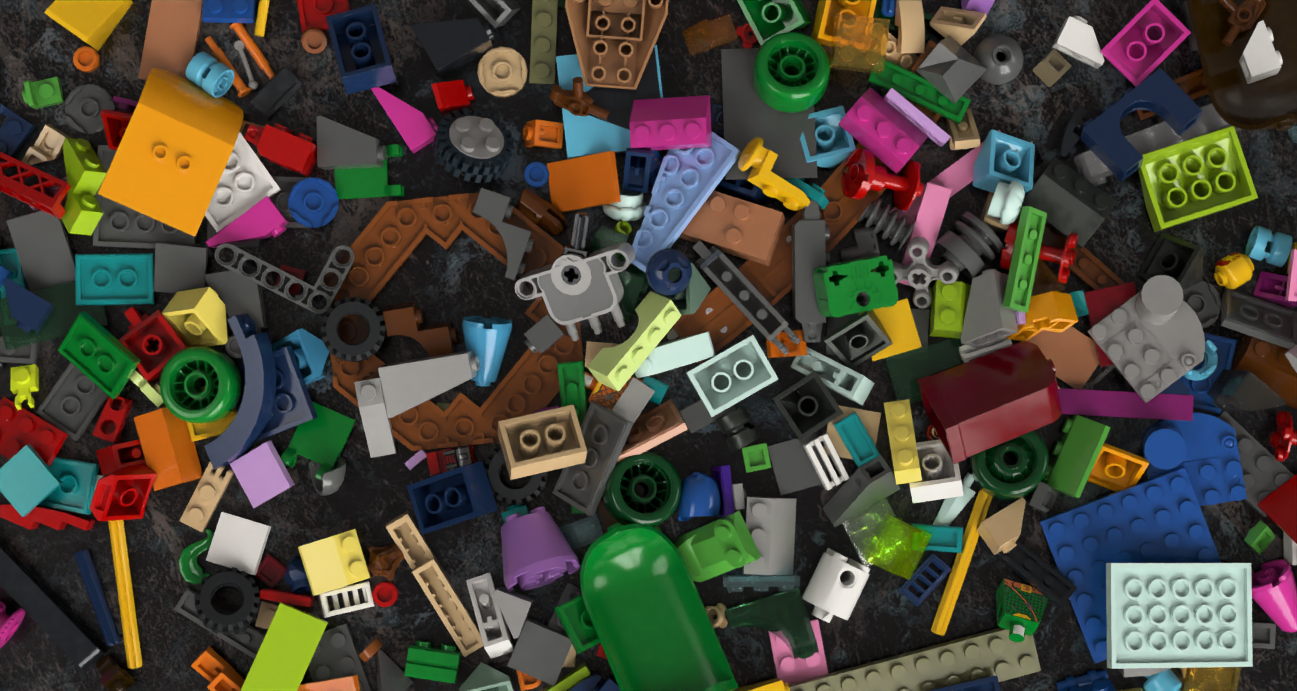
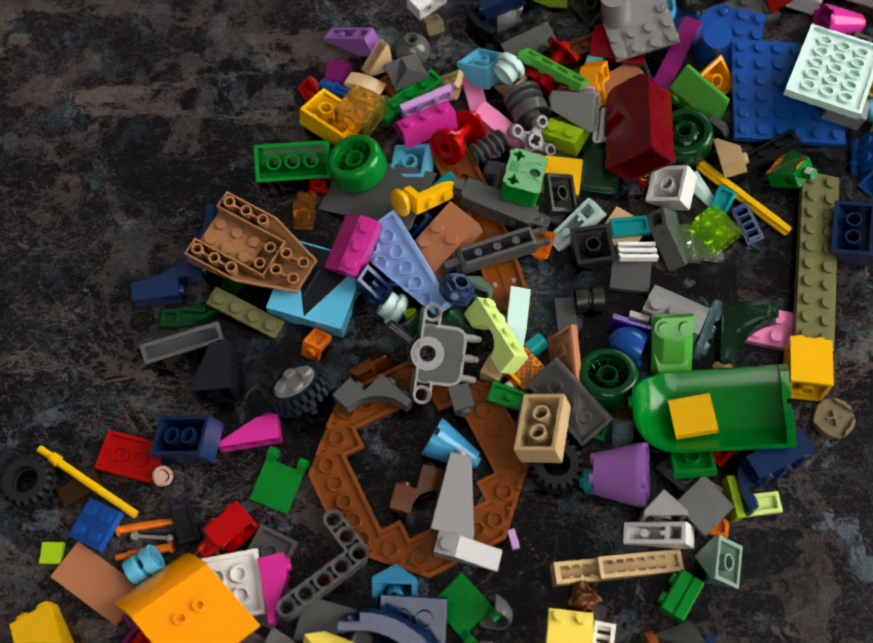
camera: 60 degrees left, 20 degrees down
(313, 202) = (280, 530): blue tile -> none
(346, 148) = (252, 483): dark grey slope -> none
(347, 307) = (387, 520): black tyre -> none
(385, 594) = (609, 611): red tile -> none
(450, 459) = (525, 512): leg -> none
(452, 96) = (254, 393): red slope -> none
(452, 497) = (556, 518): dark blue brick -> none
(502, 72) = (257, 354): tan tile -> none
(536, 174) = (342, 362): blue tile -> none
(577, 101) = (305, 302): reddish brown piece -> none
(584, 182) = (364, 326): orange tile -> none
(633, 400) = (538, 355): light grey tile -> none
(636, 603) = (693, 416): none -> yellow tile
(732, 376) = (549, 286): light aqua slope -> none
(756, 457) = (615, 297): bright green plate -> none
(832, 591) = (731, 278): white cylinder -> none
(902, 441) = (644, 194): light yellow brick -> none
(1259, 537) = (793, 21): bright green plate -> none

